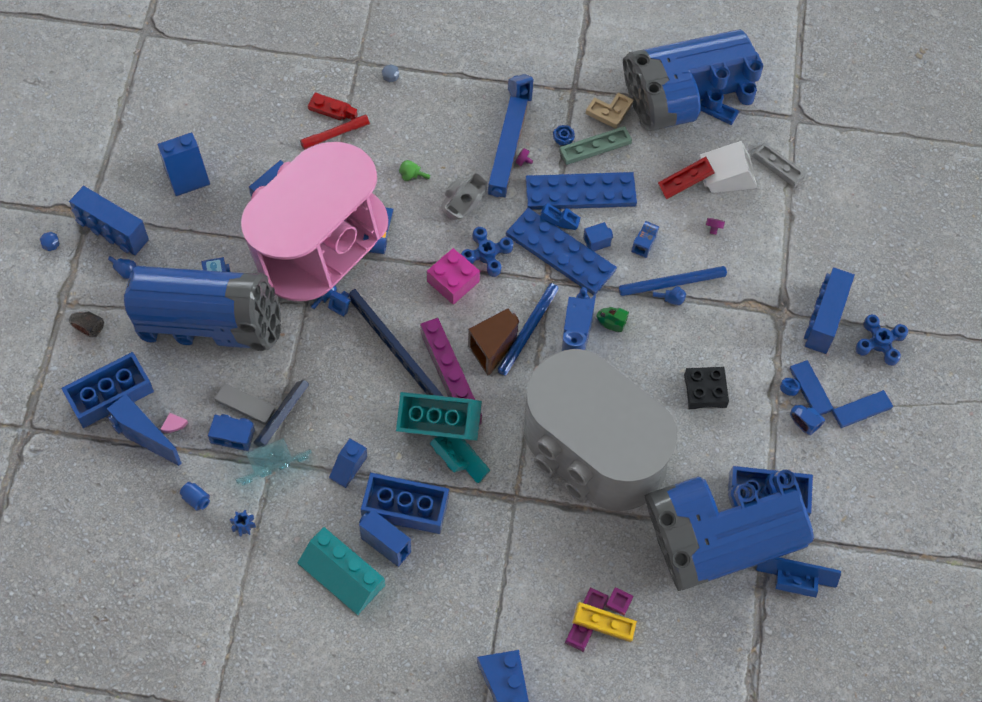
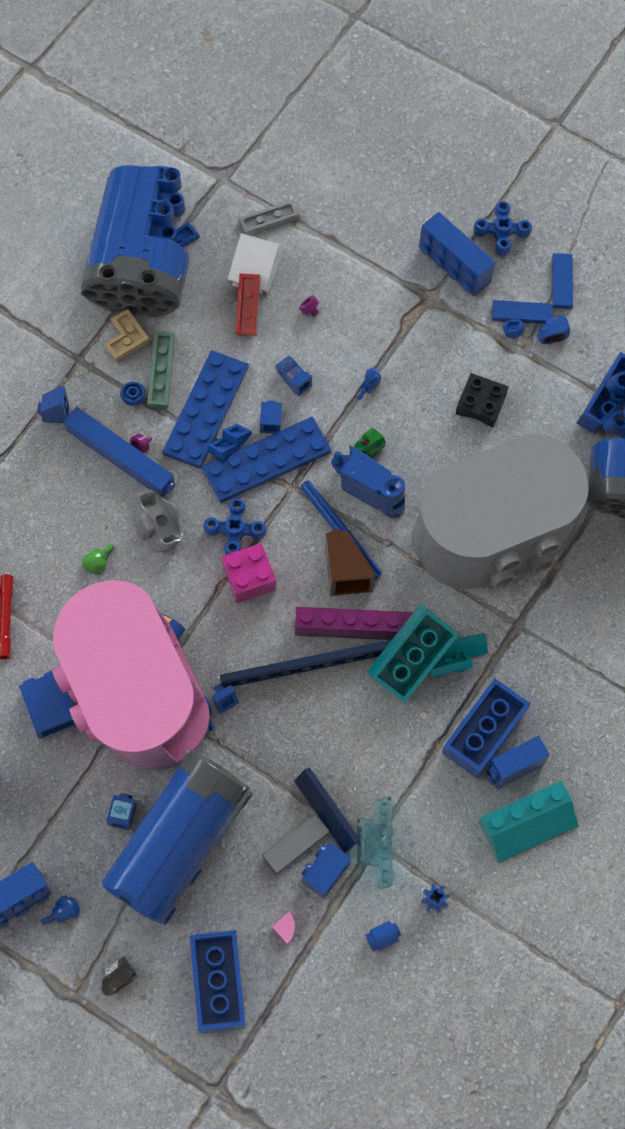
camera: 65 degrees left, 5 degrees up
(137, 427) = (277, 965): blue slope -> none
(348, 462) = (414, 766): blue slope -> none
(674, 280) = (351, 374): blue axle -> none

